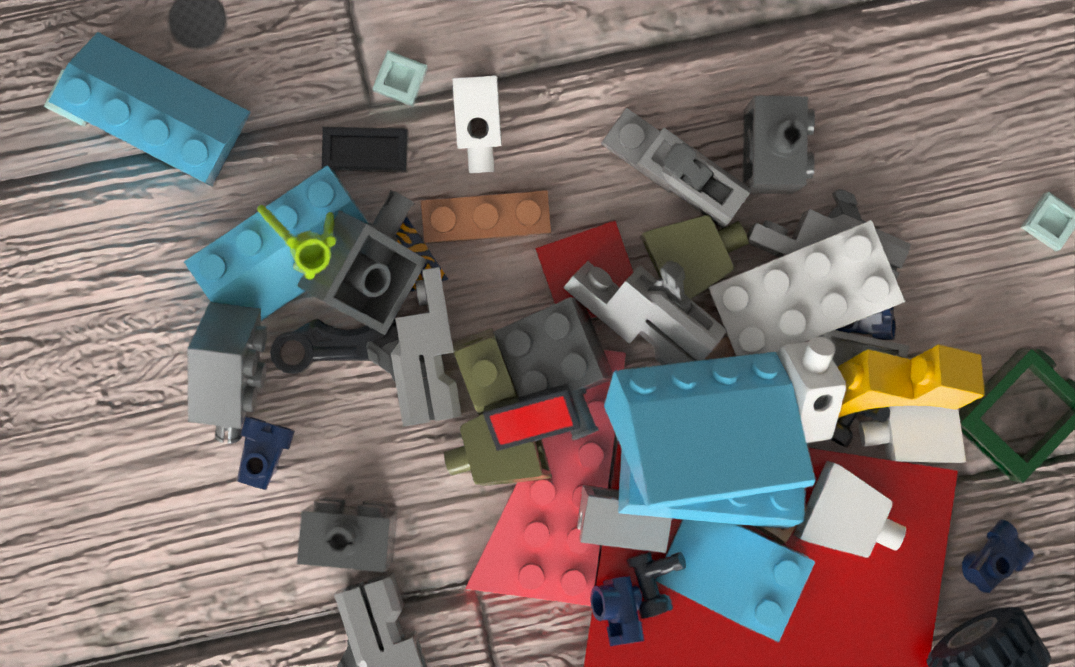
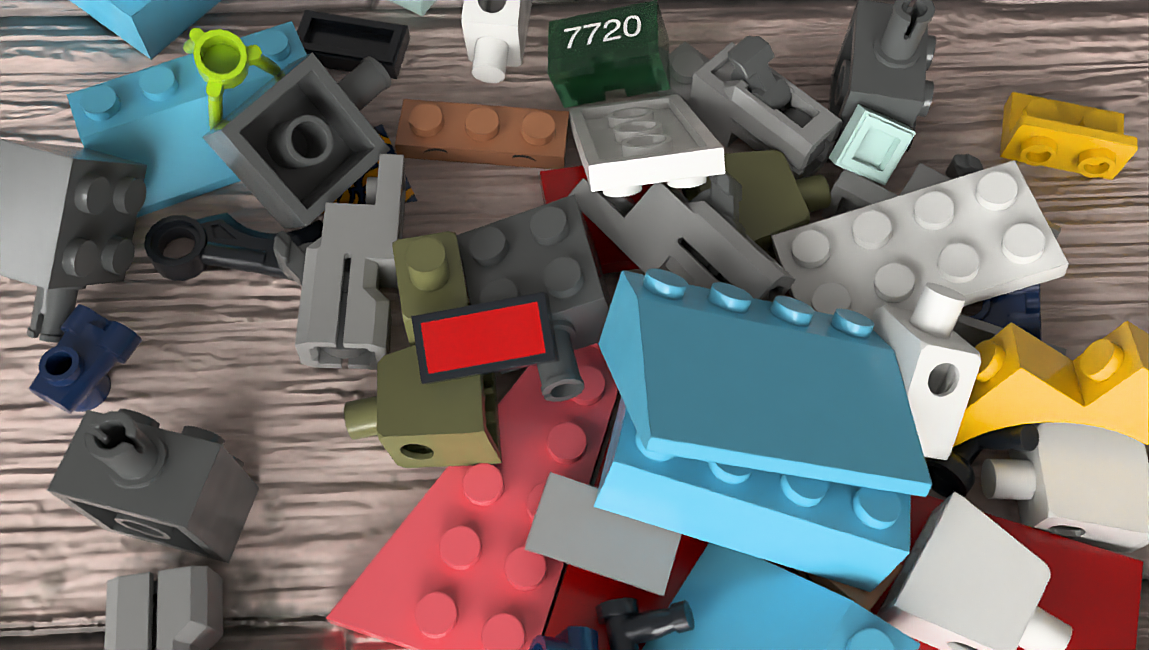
camera: 10 degrees right, 25 degrees down
(579, 137) = (609, 53): none -> clear green brick
(608, 239) = (644, 144): none -> white plate
(773, 207) = (871, 145): none -> light aqua tile
(920, 144) = (1065, 136): none -> yellow bracket

